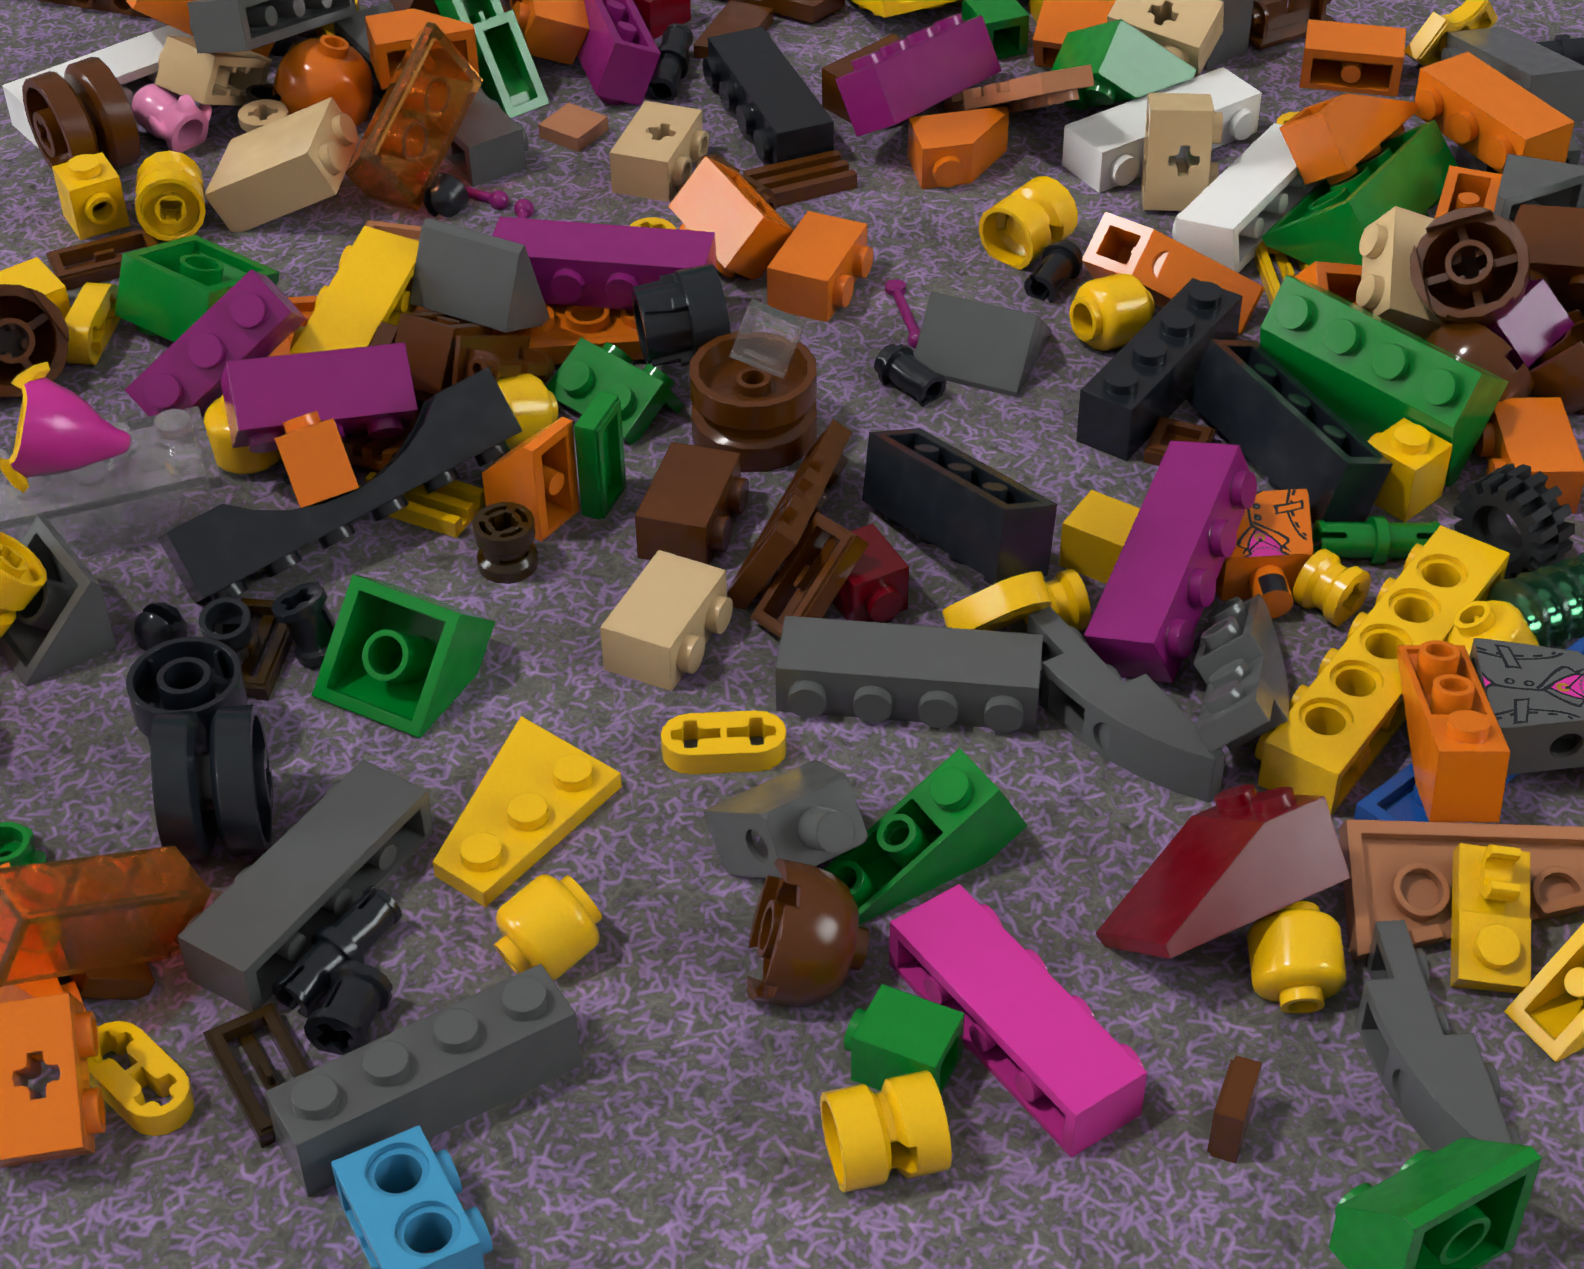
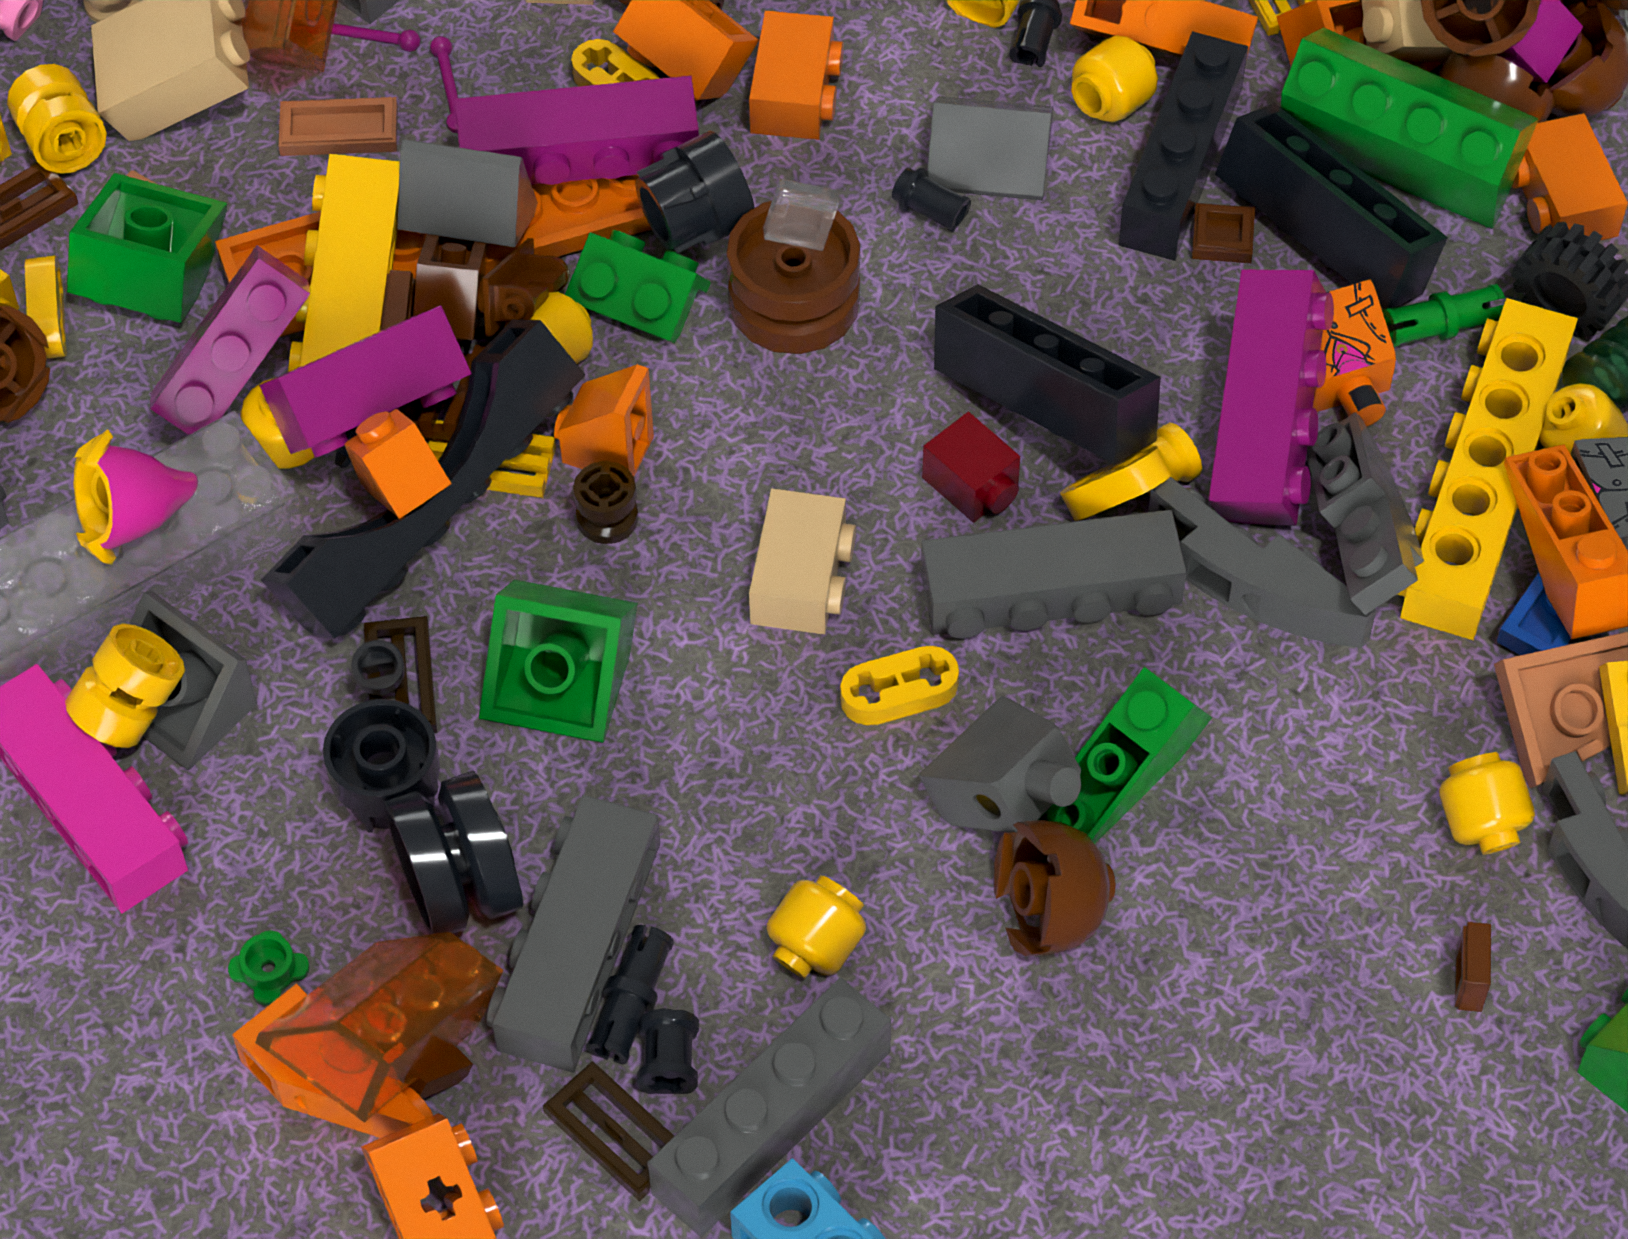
camera: 15 degrees left, 15 degrees up
(148, 1067) = (512, 1151): yellow beam -> none
(155, 623) = (290, 678): black hinge -> none
(307, 620) = (449, 637): black bush -> none
(445, 196) = (351, 50): black hinge -> none
(521, 811) = (737, 802): yellow wing -> none
(600, 455) = (671, 384): green tile -> none
(691, 503) = (773, 417): reddish brown brick -> none
(794, 510) = (881, 415): reddish brown wing -> none
(815, 584) = (947, 496): reddish brown tile -> none
(886, 1131) = (1195, 1057): yellow wheel -> none
(897, 289) = (875, 80): magenta hinge -> none
(903, 1037) = (1175, 972): green brick -> none
(1019, 1019) = (1262, 920): dark pink brick -> none
(1095, 535) = (1192, 372): yellow brick -> none
(1229, 870) = (1410, 740): dark red slope -> none
(1331, 587) = (1416, 384): yellow wheel -> none
(1417, 469) = (1463, 217): yellow brick -> none

